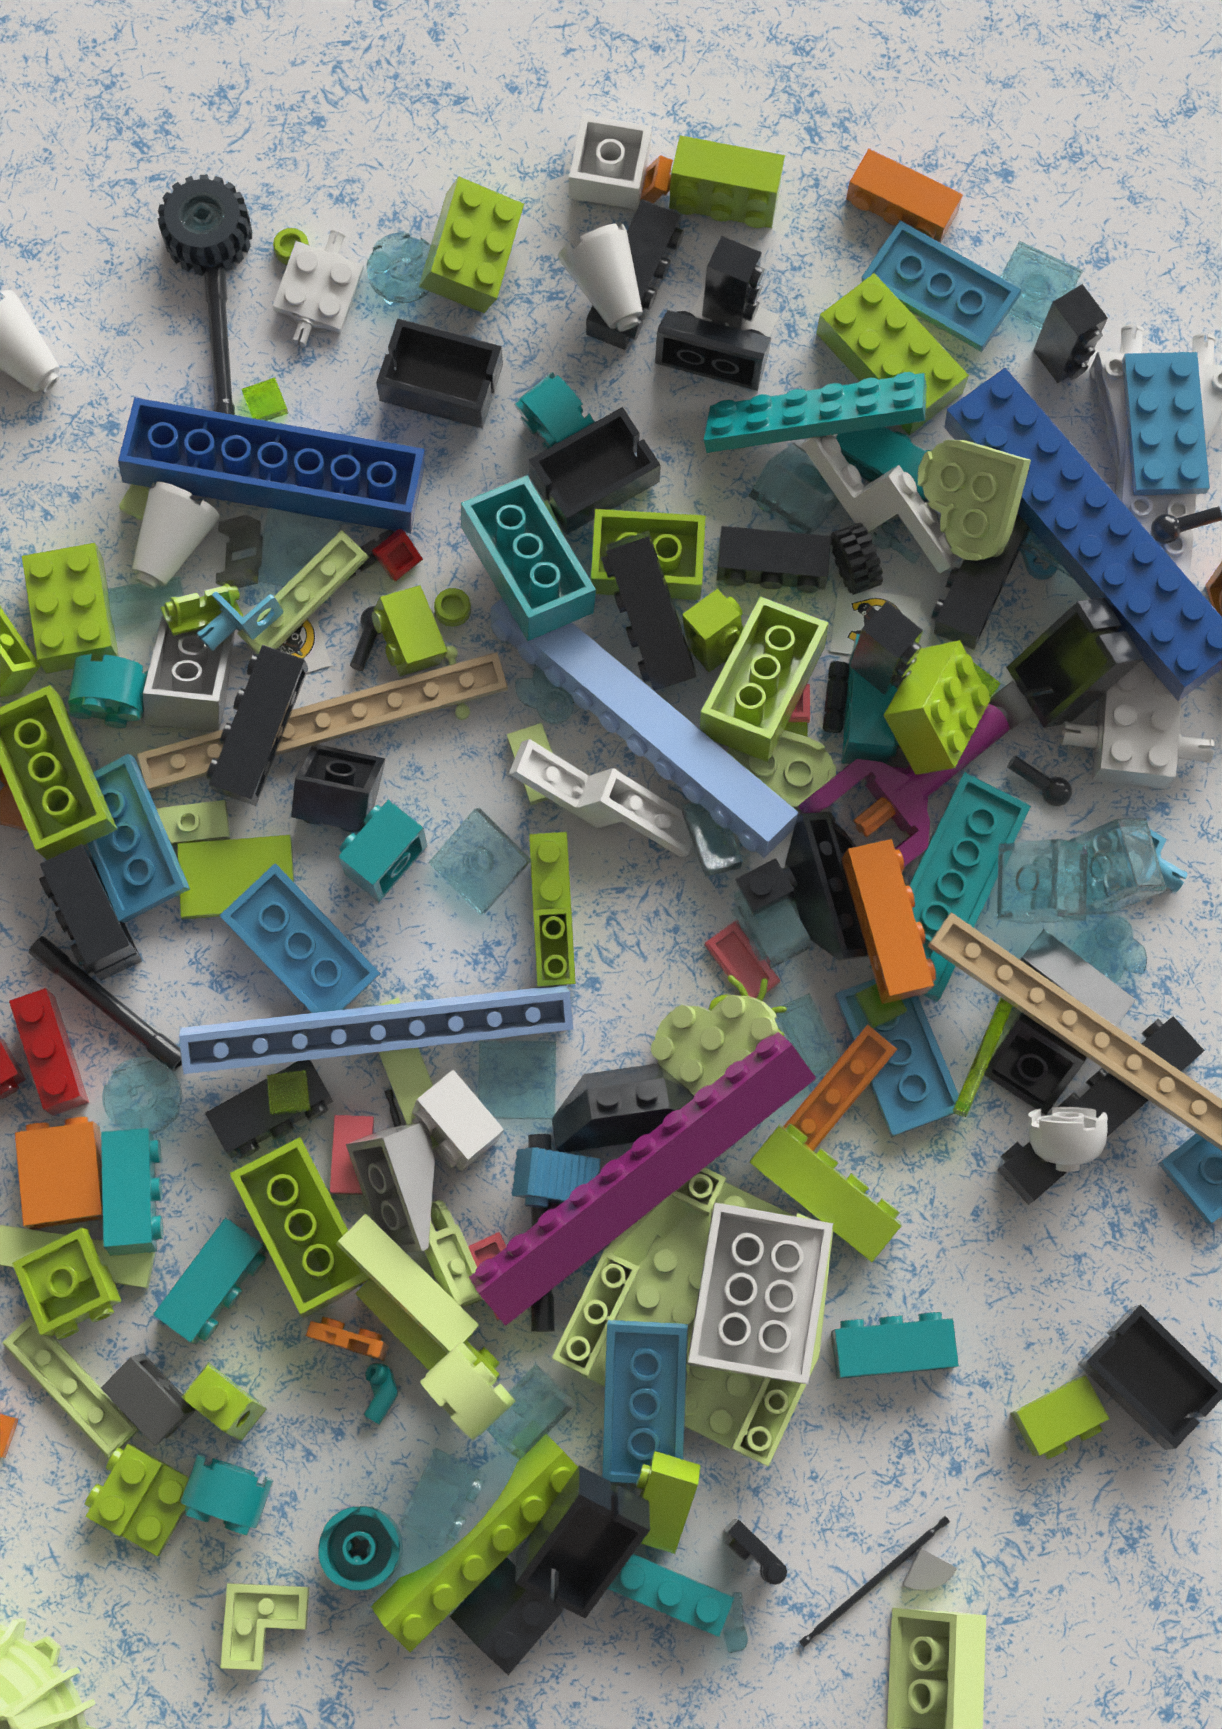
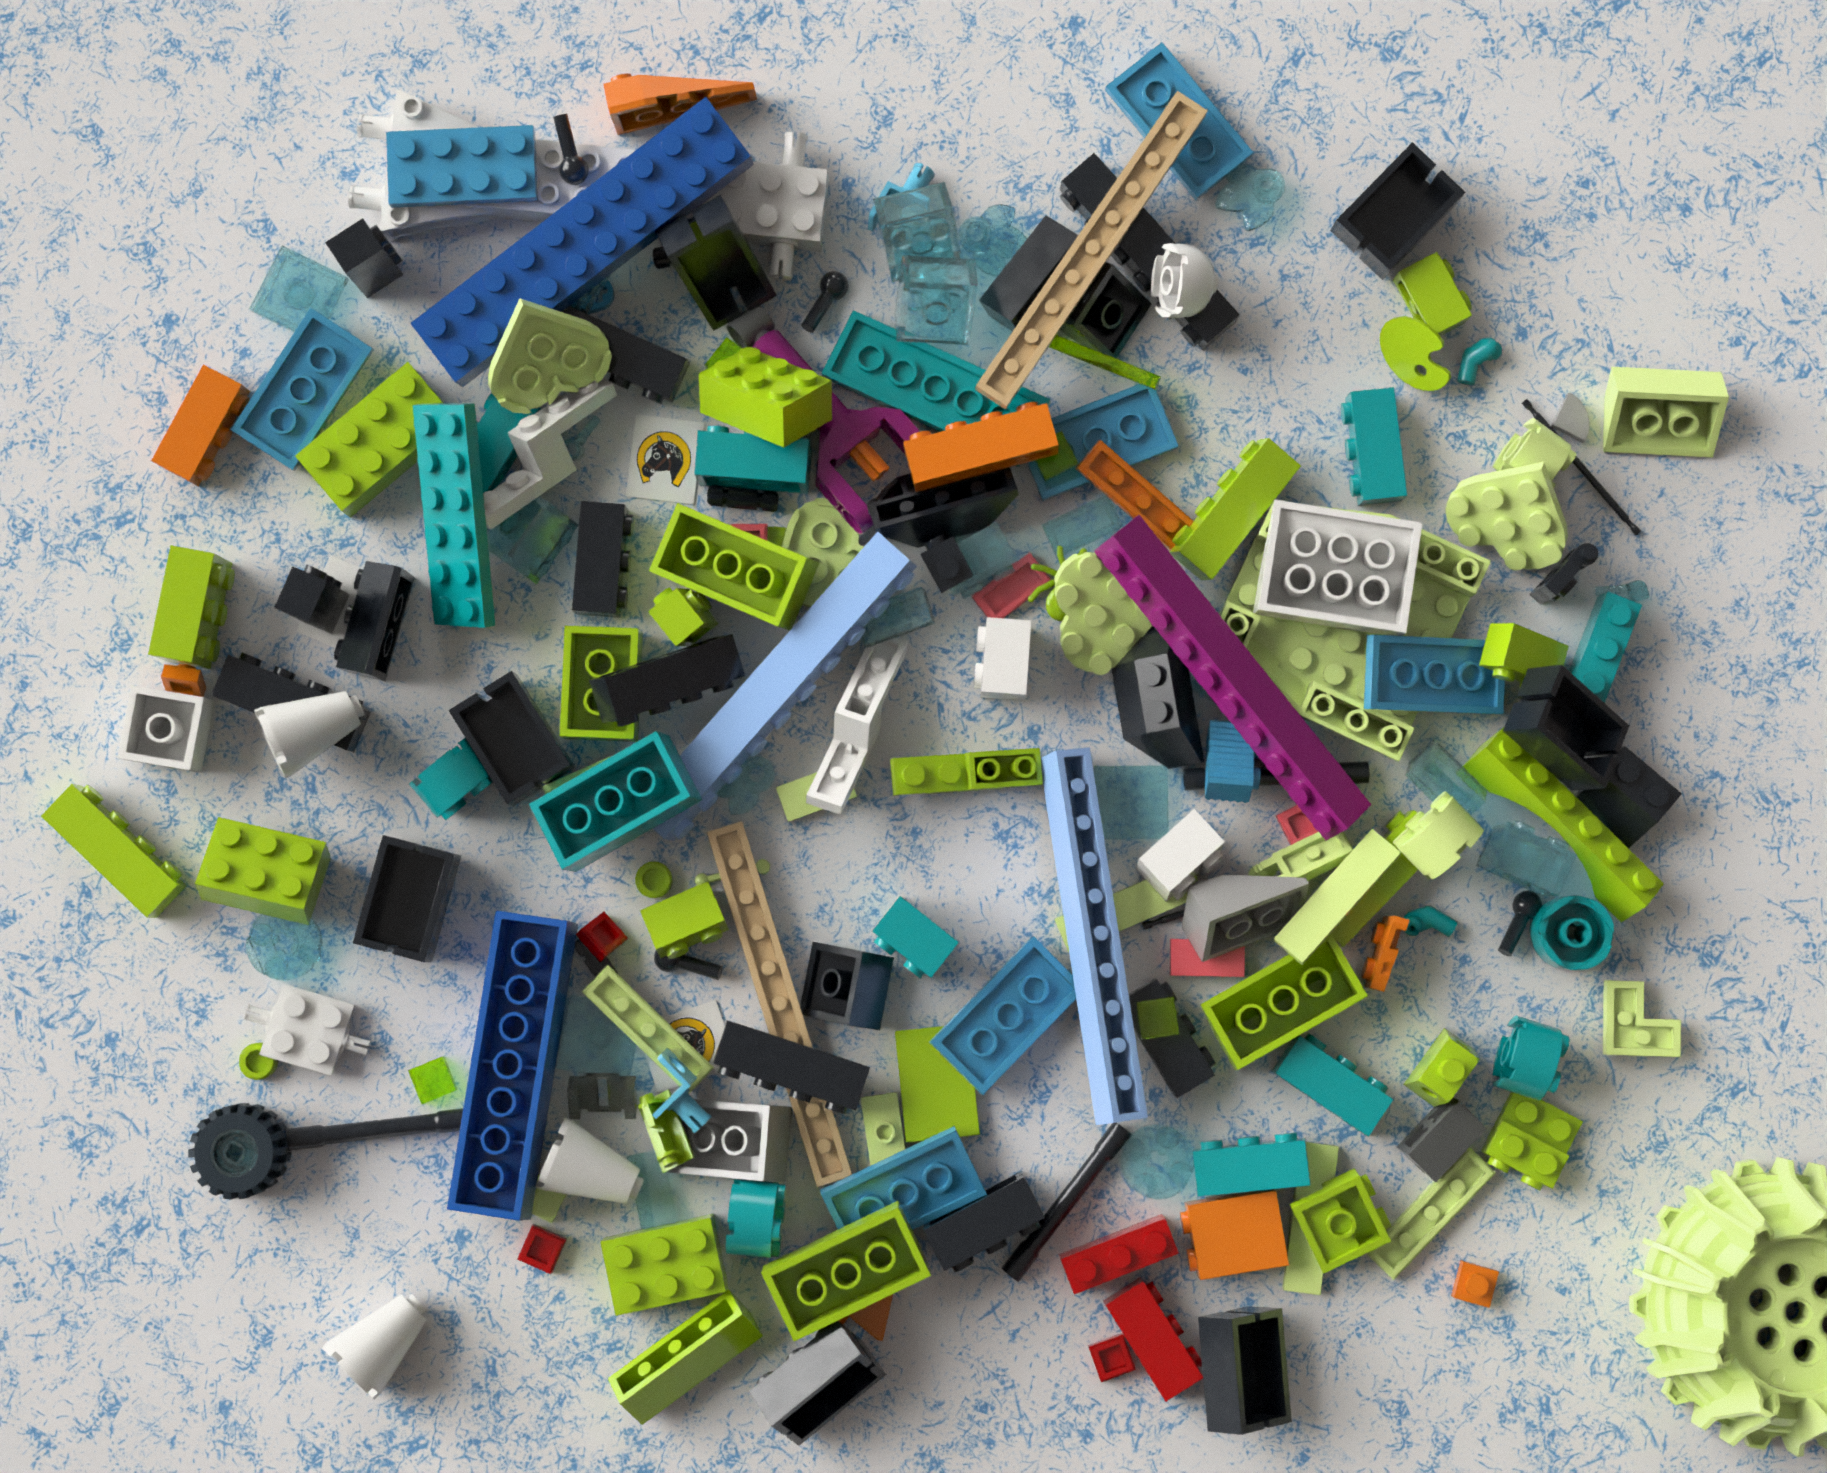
camera: 85 degrees left, 10 degrees up
(94, 498) = (542, 1249): none -> red tile
(390, 1501) = (1525, 907): none -> black bar
(479, 861) = (920, 843): clear light blue plate -> none
(496, 119) = (114, 850): none -> lime brick
(667, 945) = (1005, 658): none -> white brick
(822, 1494) = (1514, 513): none -> yellowish green plate
(856, 558) = (603, 476): black tyre -> none
(877, 1518) = (1536, 446): none -> yellowish green brick
(887, 649) = (725, 440): black brick -> none
(996, 1463) = (1475, 355): none -> teal arm
(1006, 1388) = (1408, 344): none -> lime piece
(1162, 1219) = (1248, 197): none -> clear light blue plate

